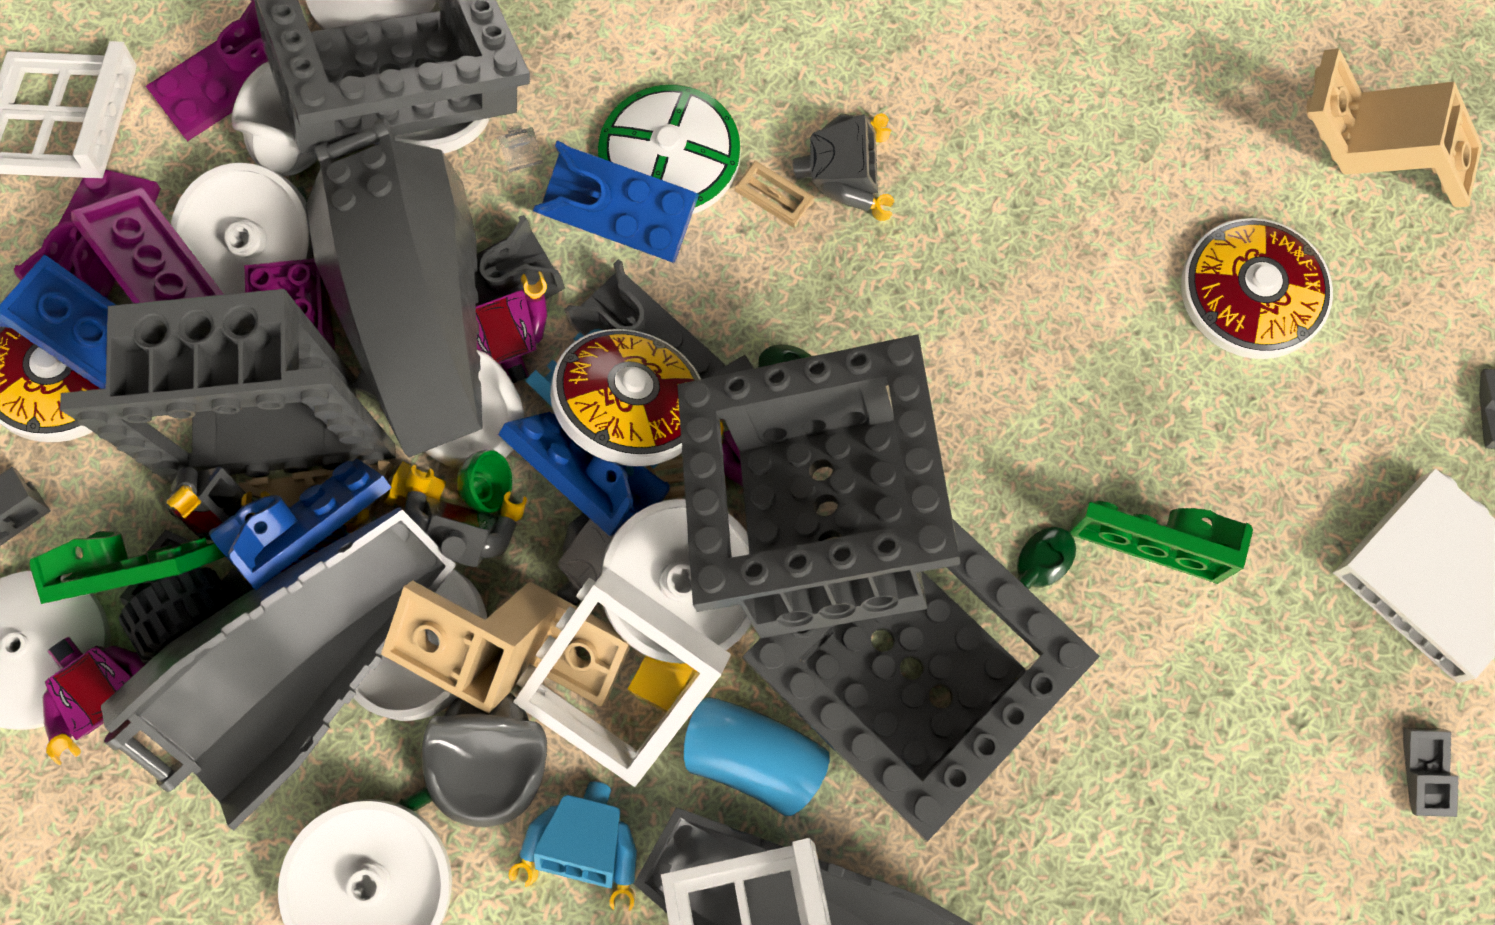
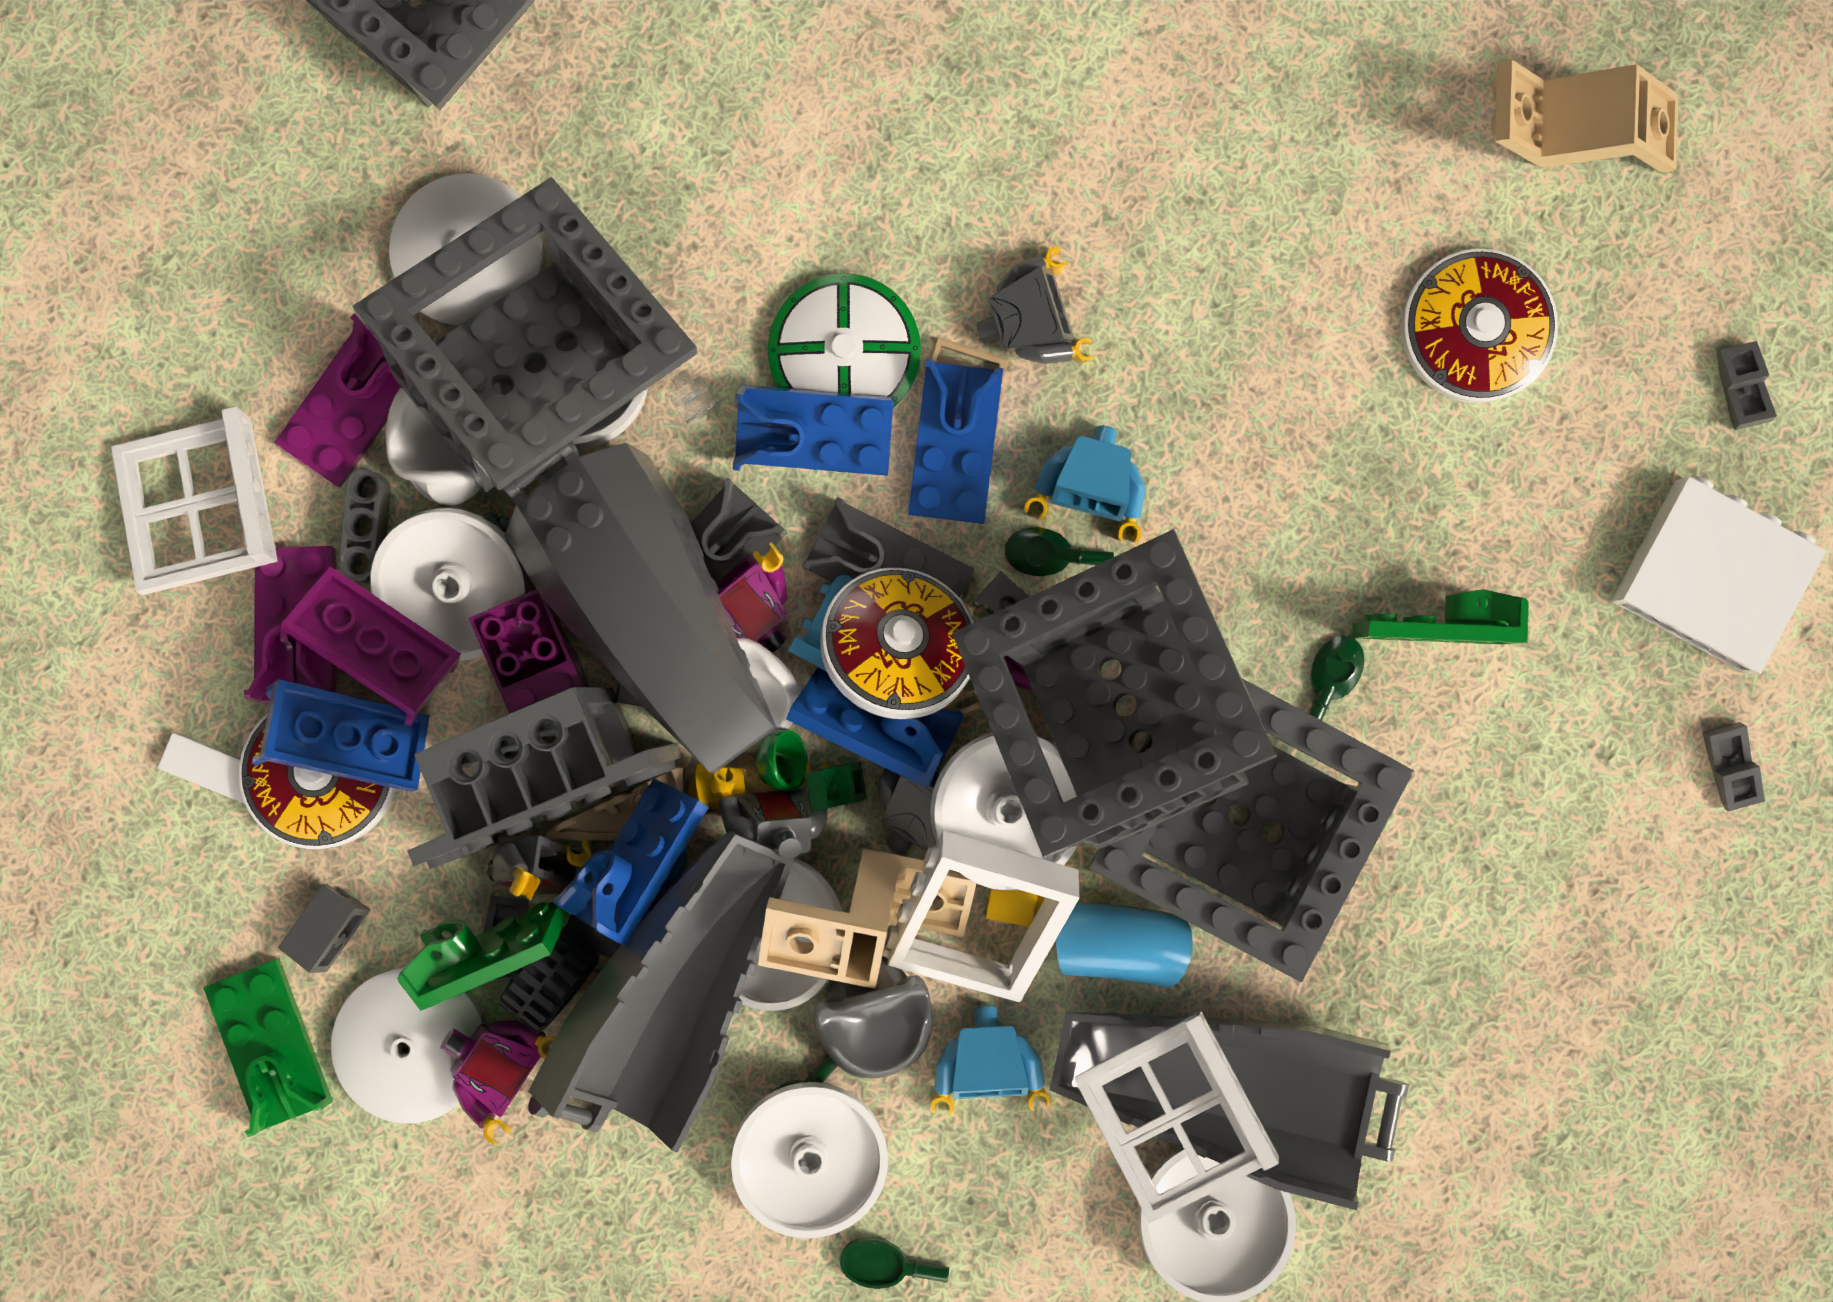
camera: 15 degrees left, 15 degrees up
(190, 156) = (355, 509): none -> dark grey beam
(525, 518) = (836, 786): none -> dark green slope
(743, 251) = (955, 442): none -> blue plate
(854, 310) = (1094, 479): none -> dark azure torso

